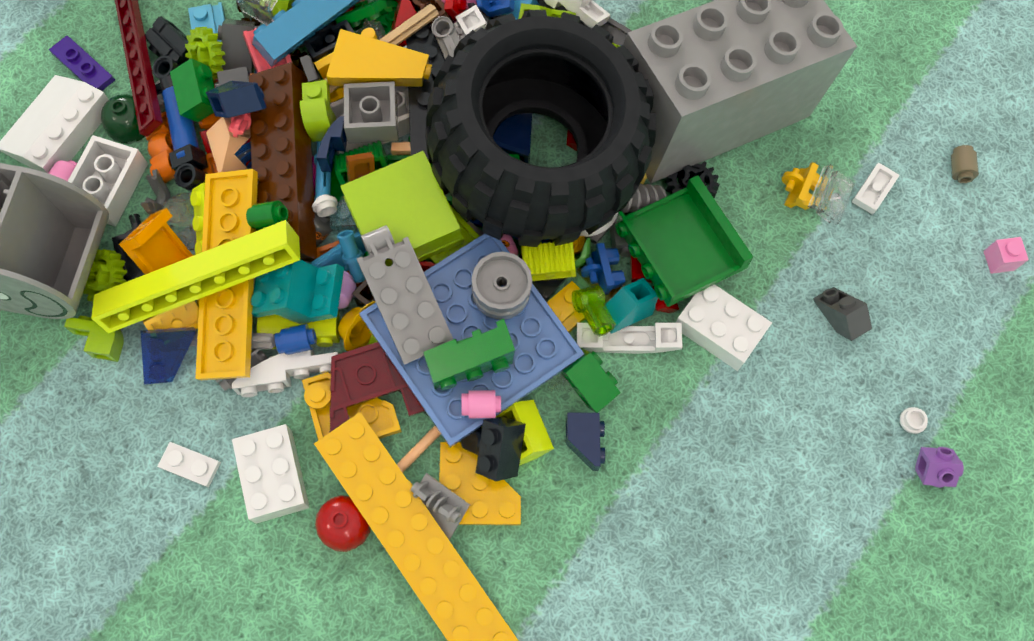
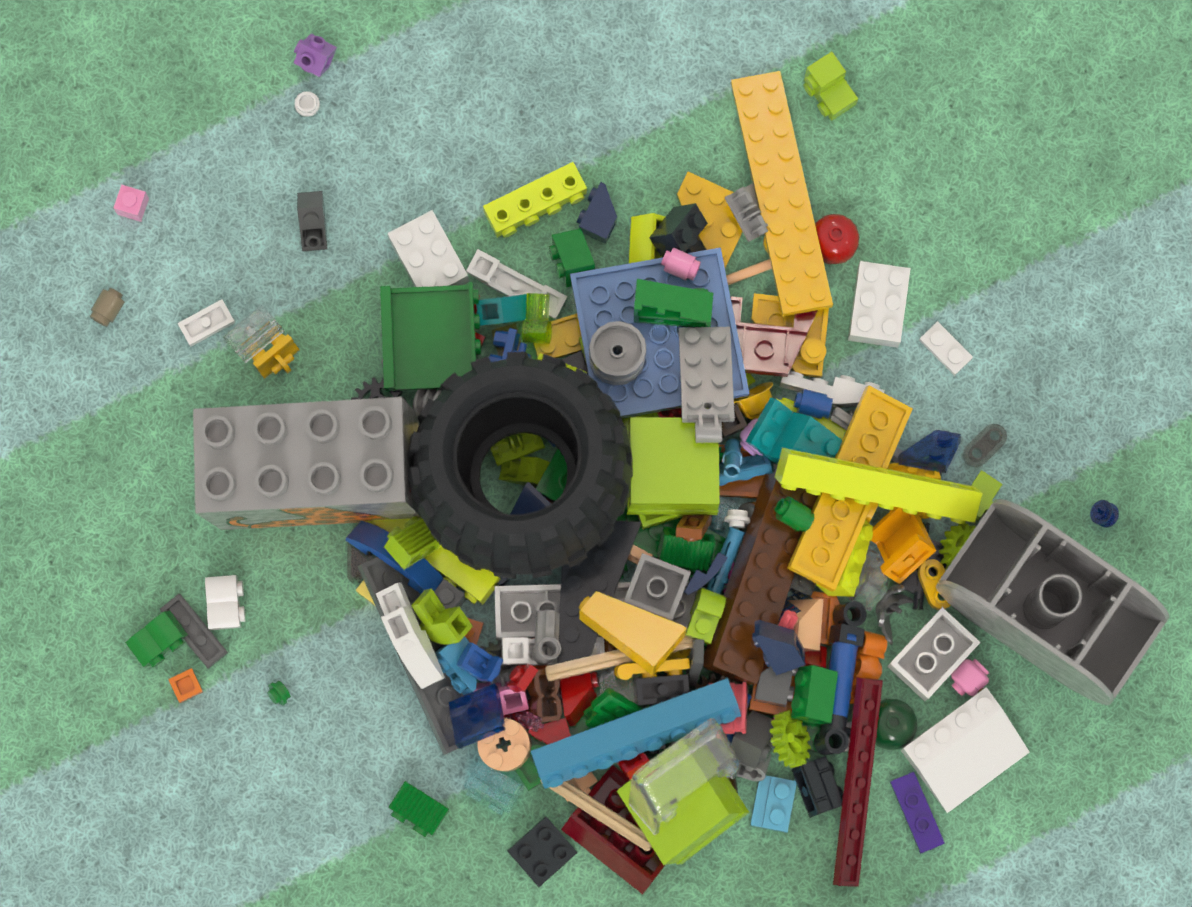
camera: 155 degrees left, 10 degrees up
(117, 235) = (929, 583): none -> yellow plate
(120, 388) = (985, 445): none -> clear smoke plate
(653, 424) = (535, 199): none -> neon yellow brick

